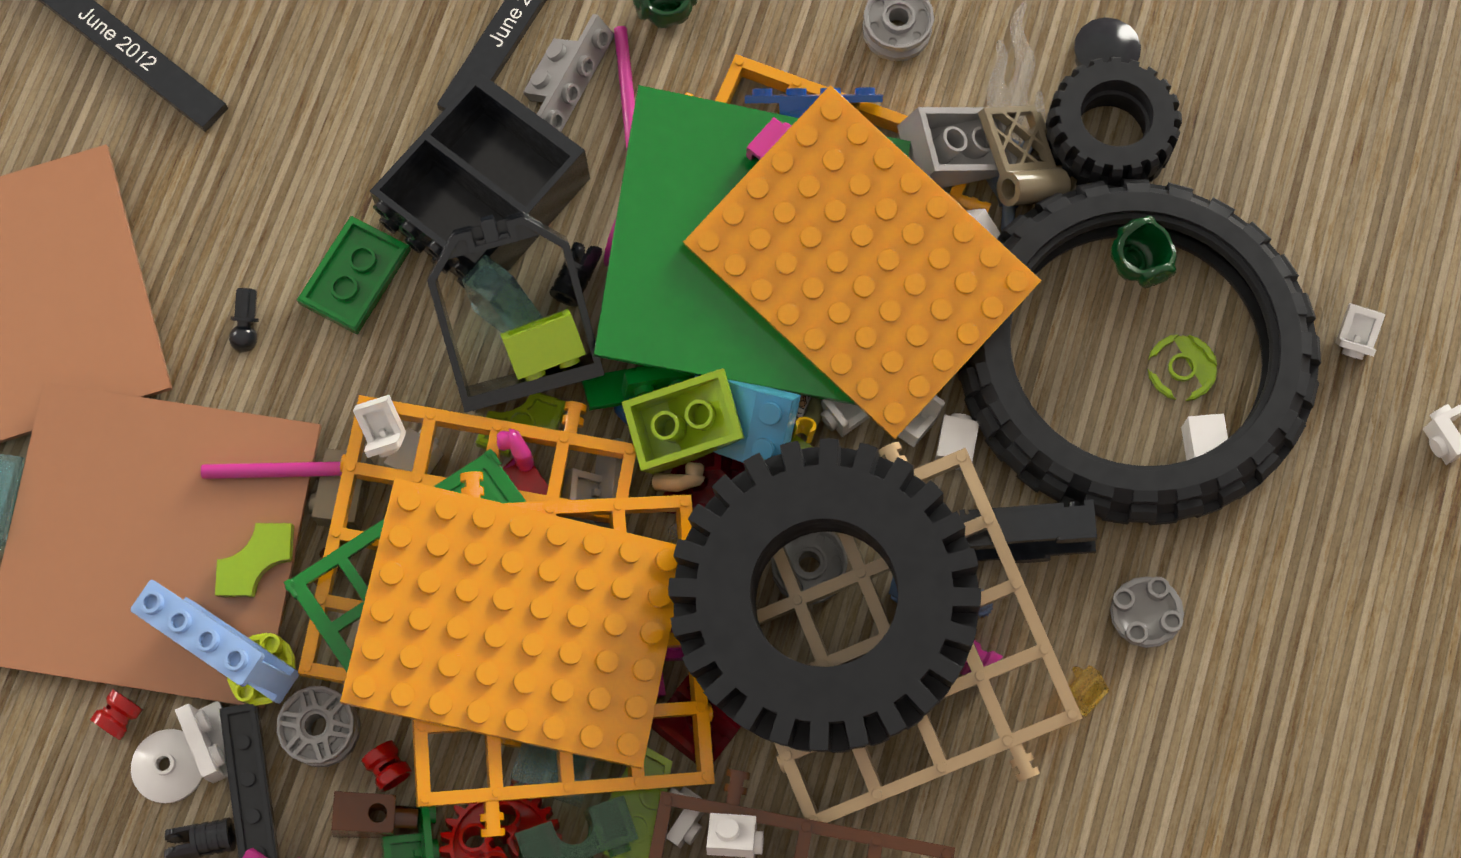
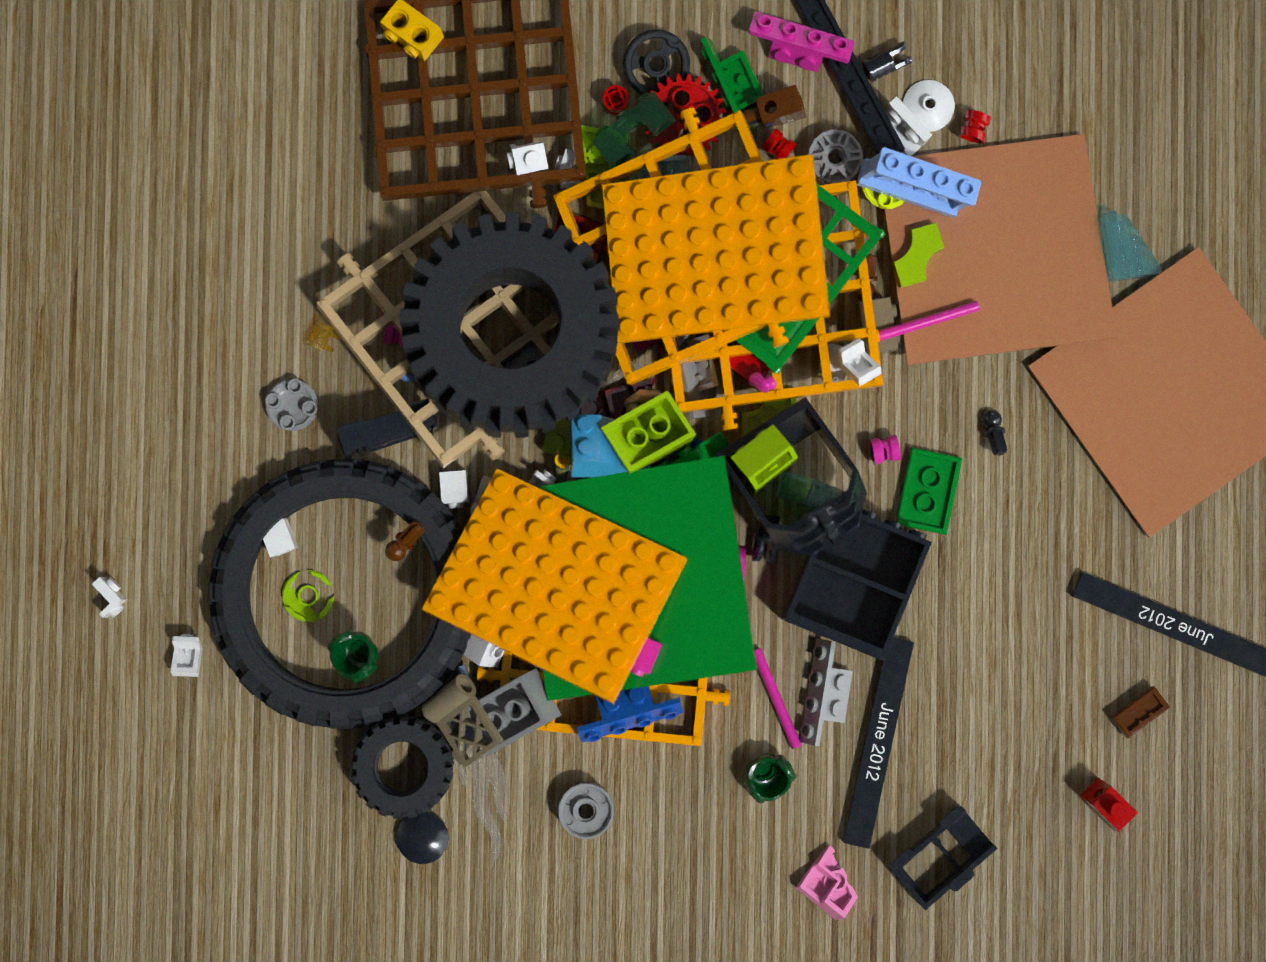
camera: 160 degrees right, 15 degrees up
(389, 335) = (890, 452): none -> dark pink wheel
(1042, 377) = (396, 549): none -> reddish brown axle

